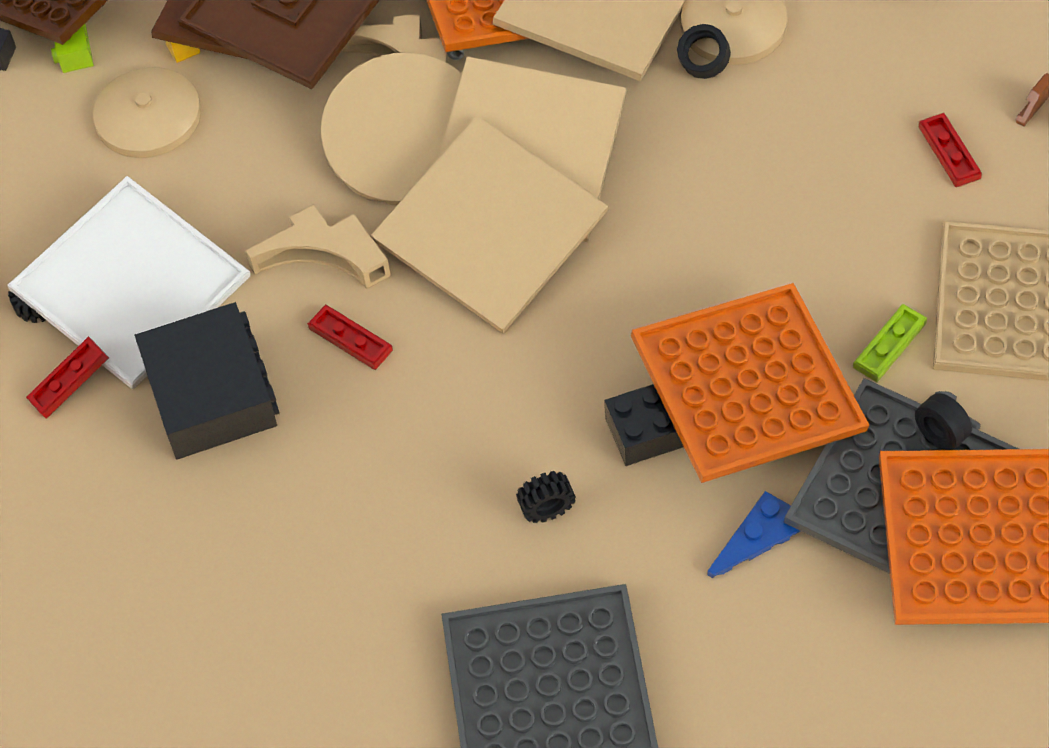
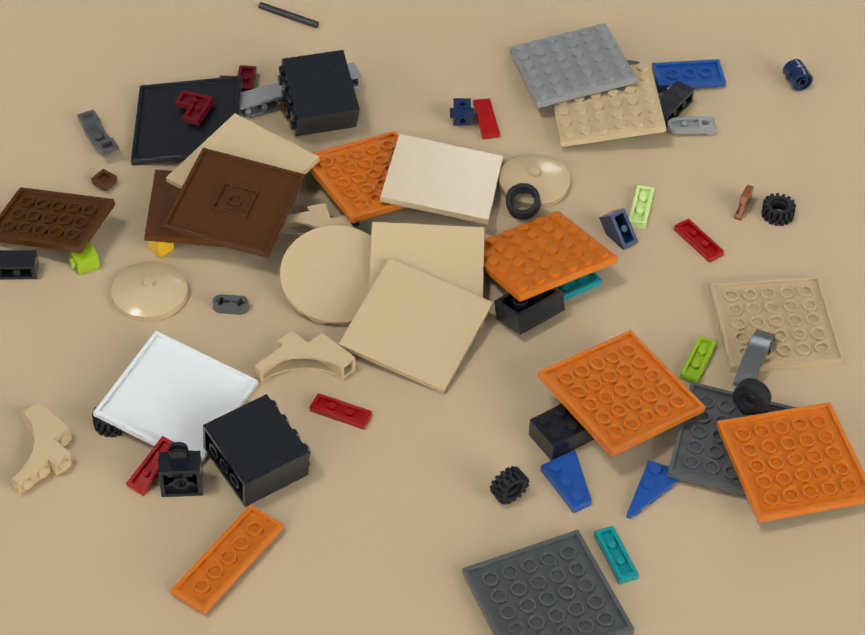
camera: 20 degrees left, 10 degrees down
(89, 390) = (180, 471): none -> black brick
(125, 536) = (227, 559): none -> orange plate
(249, 148) = (230, 304): none -> dark grey beam
(638, 501) = (568, 480): none -> blue wing
(661, 218) = (529, 312): none -> black brick
(672, 632) = (616, 555): none -> teal tile
(703, 143) = (543, 255): none -> orange plate
(739, 195) = (580, 285): none -> teal tile
(833, 114) = (618, 228): none -> dark blue slope
(879, 83) = (641, 206): none -> yellowish green tile
(972, 353) = (754, 356): none -> dark grey slope

